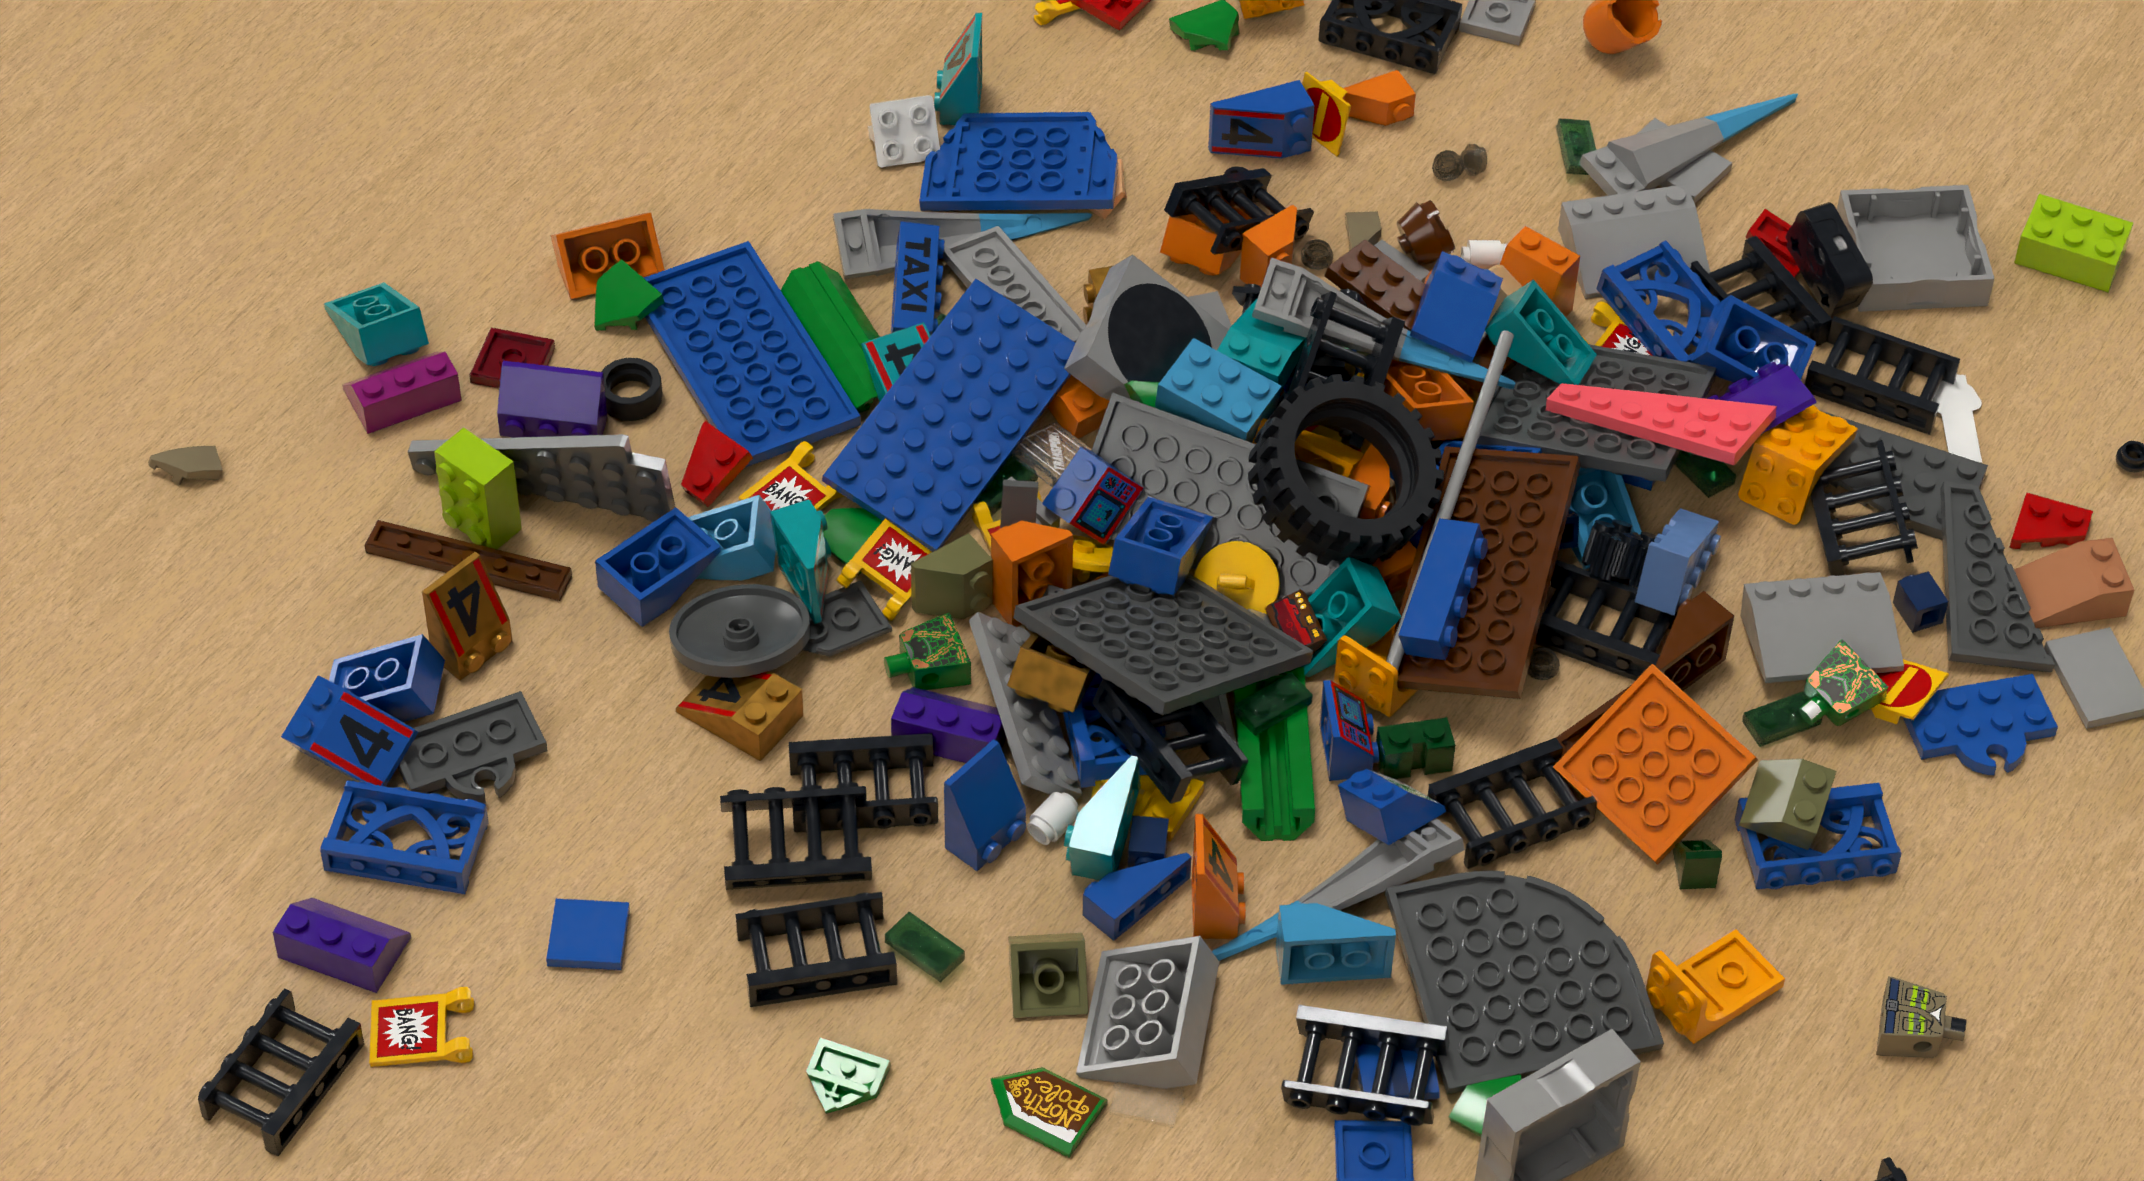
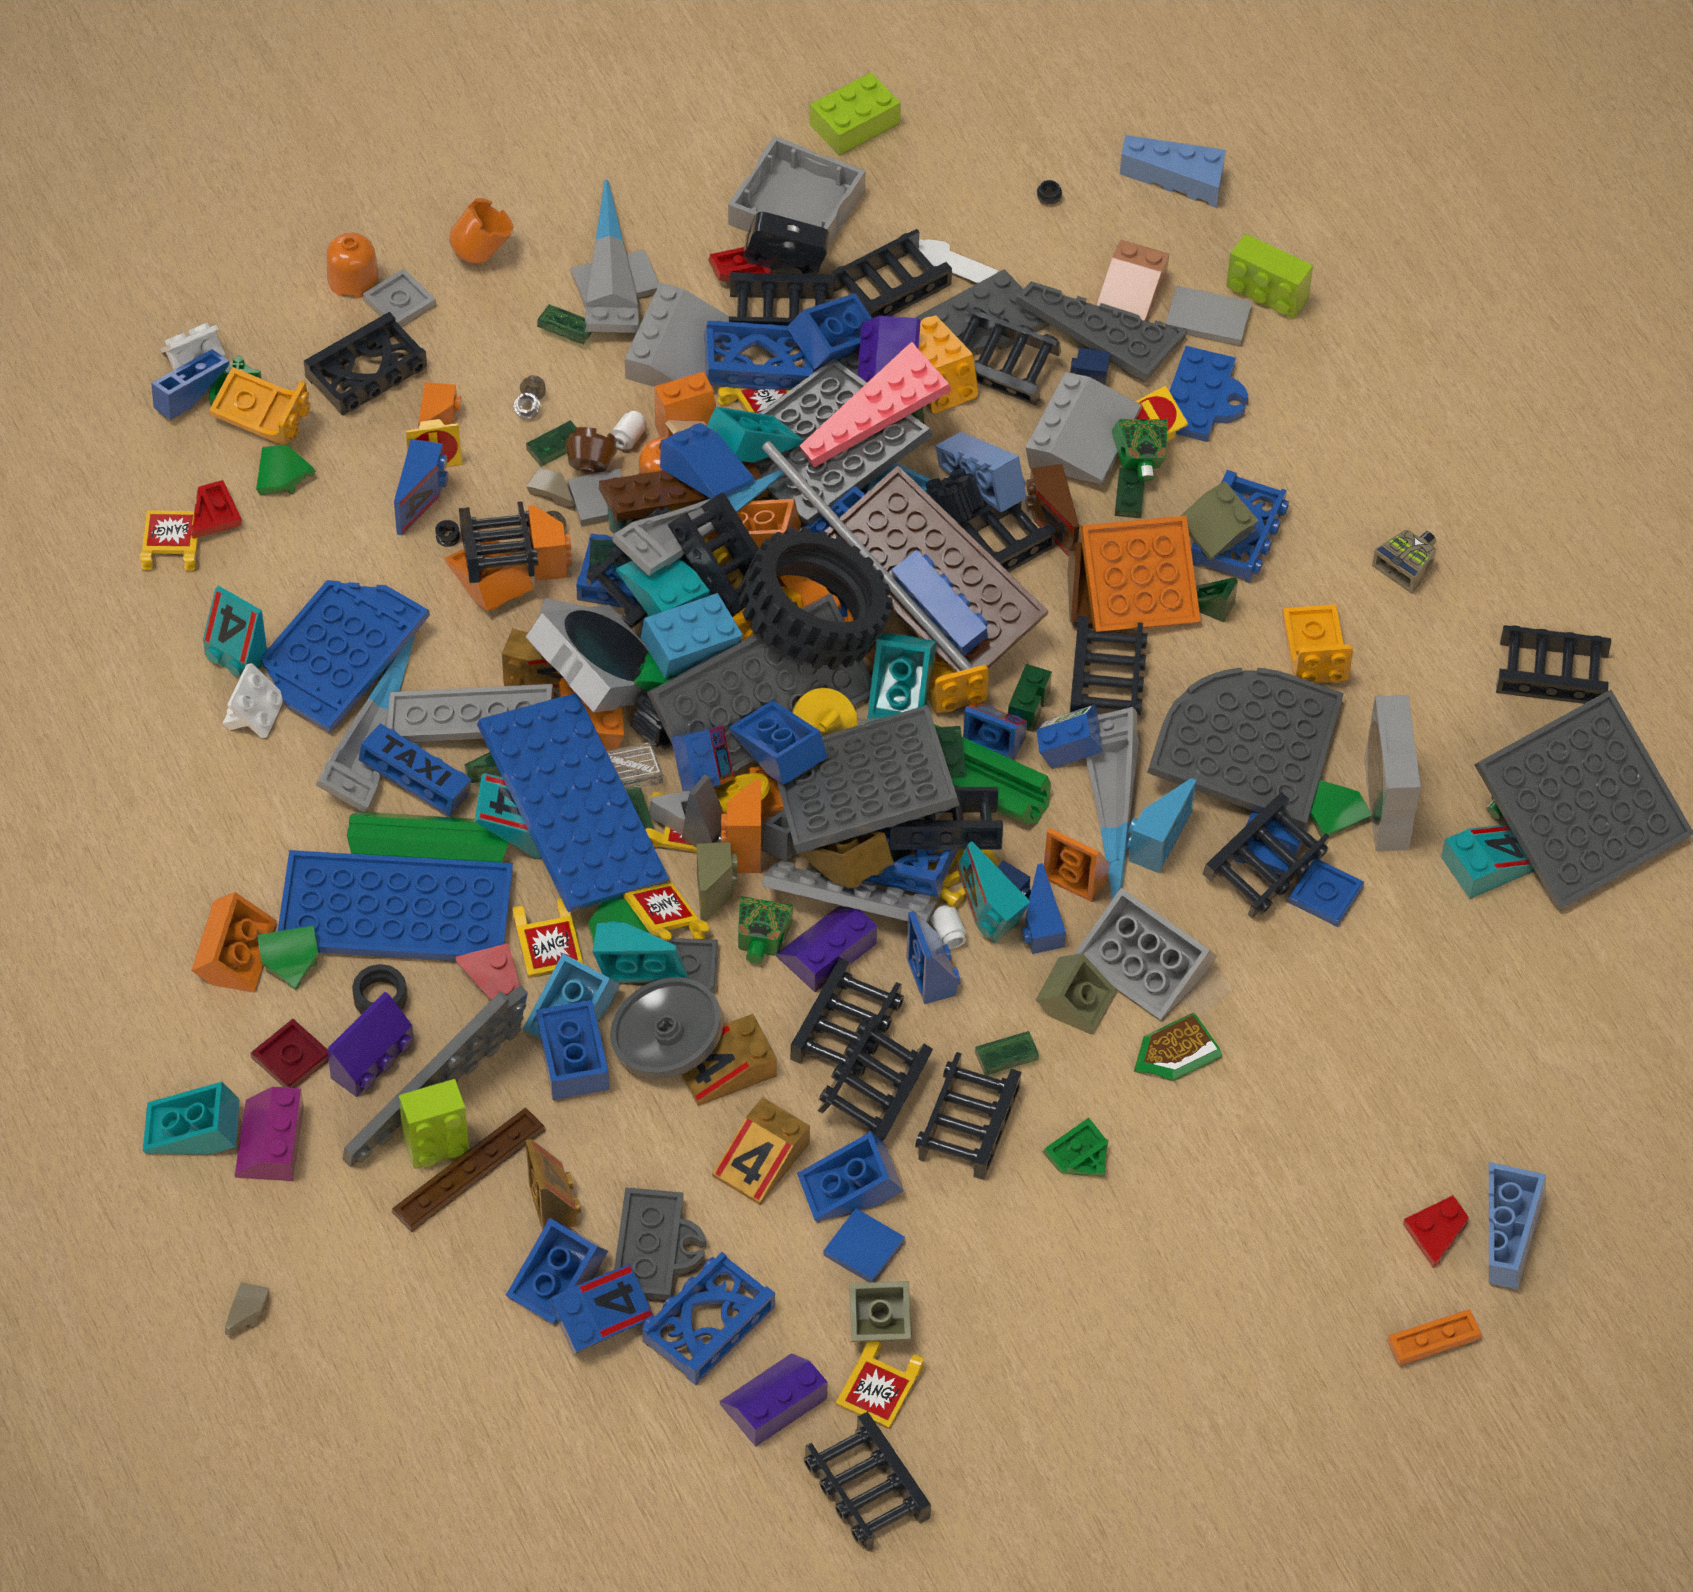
camera: 60 degrees left, 5 degrees up
(497, 980) = (880, 1311): none -> olive slope
(647, 787) = (762, 1151): none -> pearl gold slope
(663, 881) = (850, 1178): none -> blue slope
(1297, 619) = (881, 703): slope -> none
(1405, 199) = (550, 444): none -> clear green plate
(2050, 522) = (1069, 266): red wing -> none

